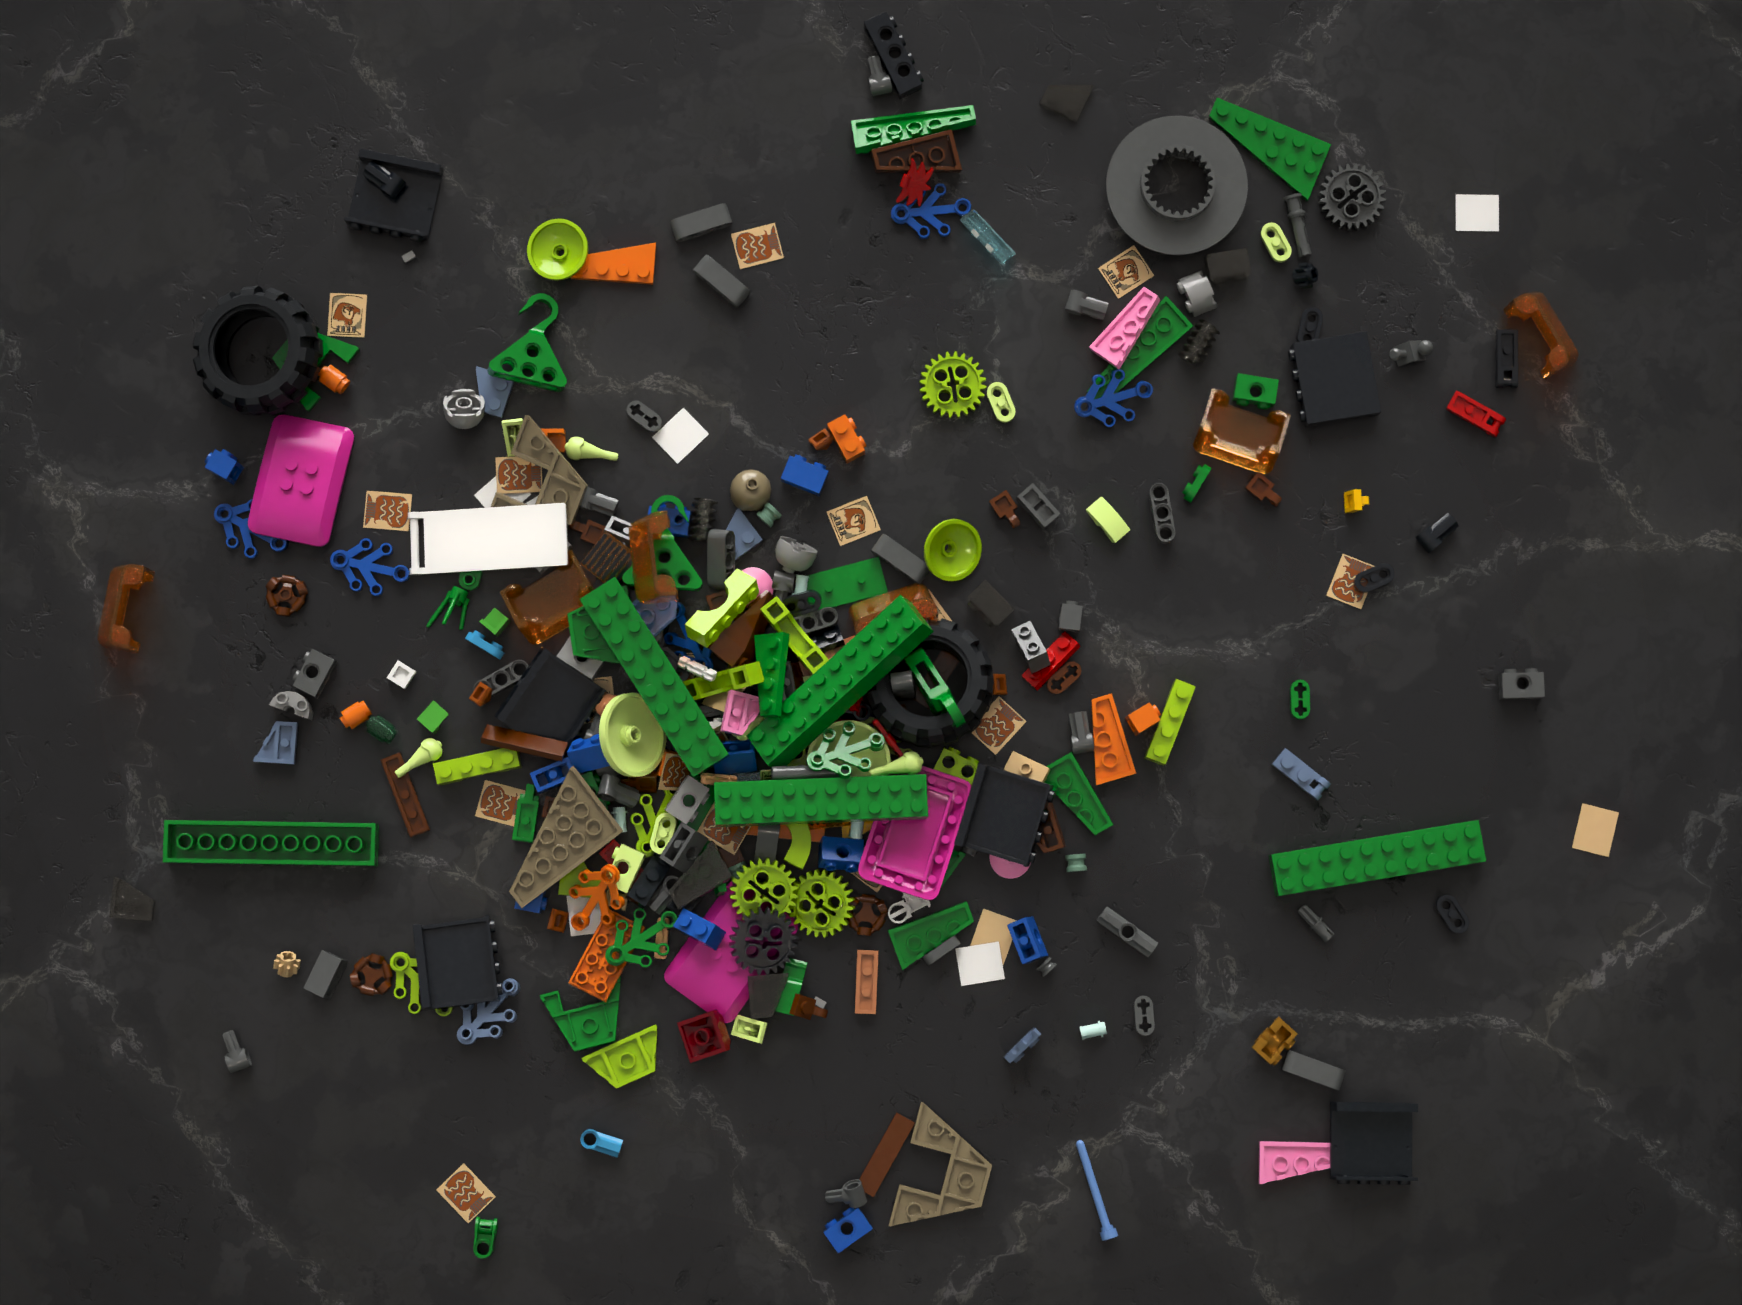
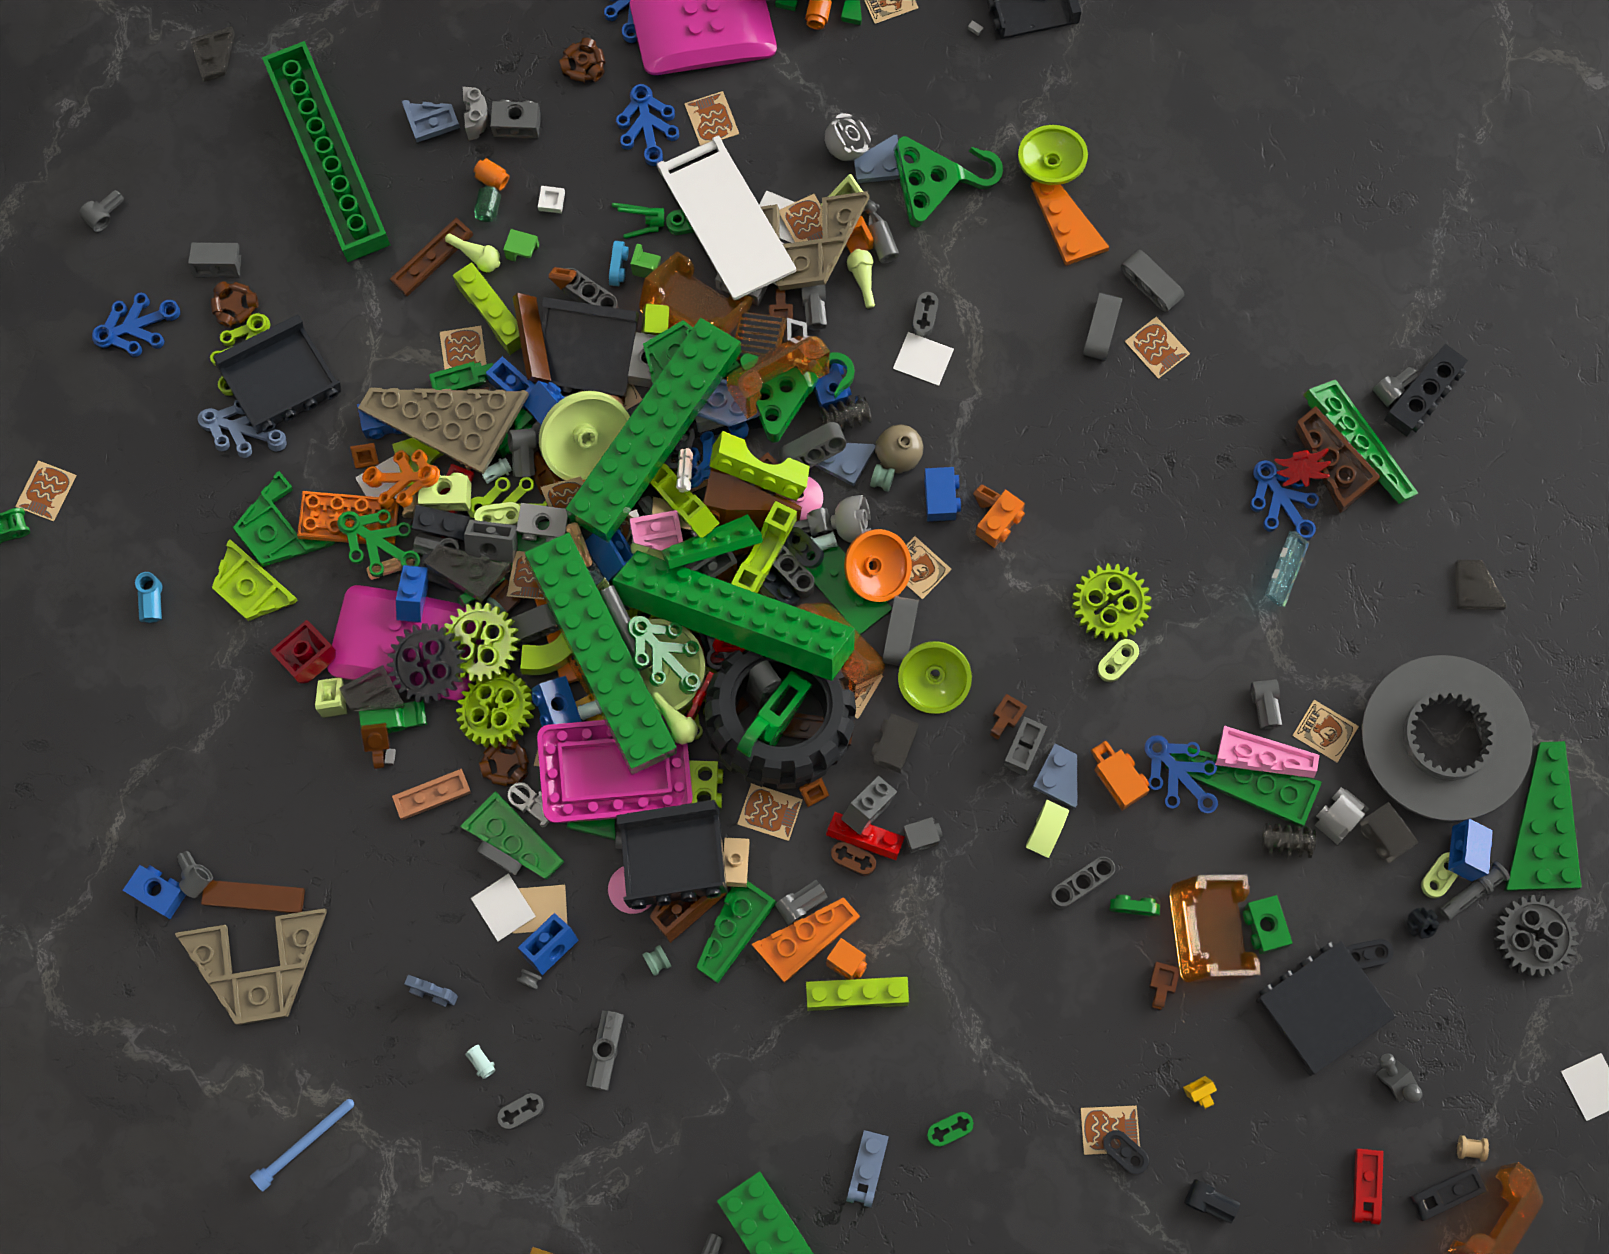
camera: 70 degrees right, 10 degrees down
(286, 964) = (210, 218): tan gear -> none
(352, 1067) = (132, 325): none -> blue plant
(553, 636) = (654, 319): none -> lime panel
(559, 420) = (882, 236): none -> dark grey wheel
(849, 547) = (890, 565): none -> orange dish
(1070, 491) = (1059, 776): none -> sand blue wing
(1092, 445) = (1119, 775): none -> orange brick
(1268, 212) = (1470, 850): none -> brick
(1483, 324) = (1472, 1148): none -> tan bush

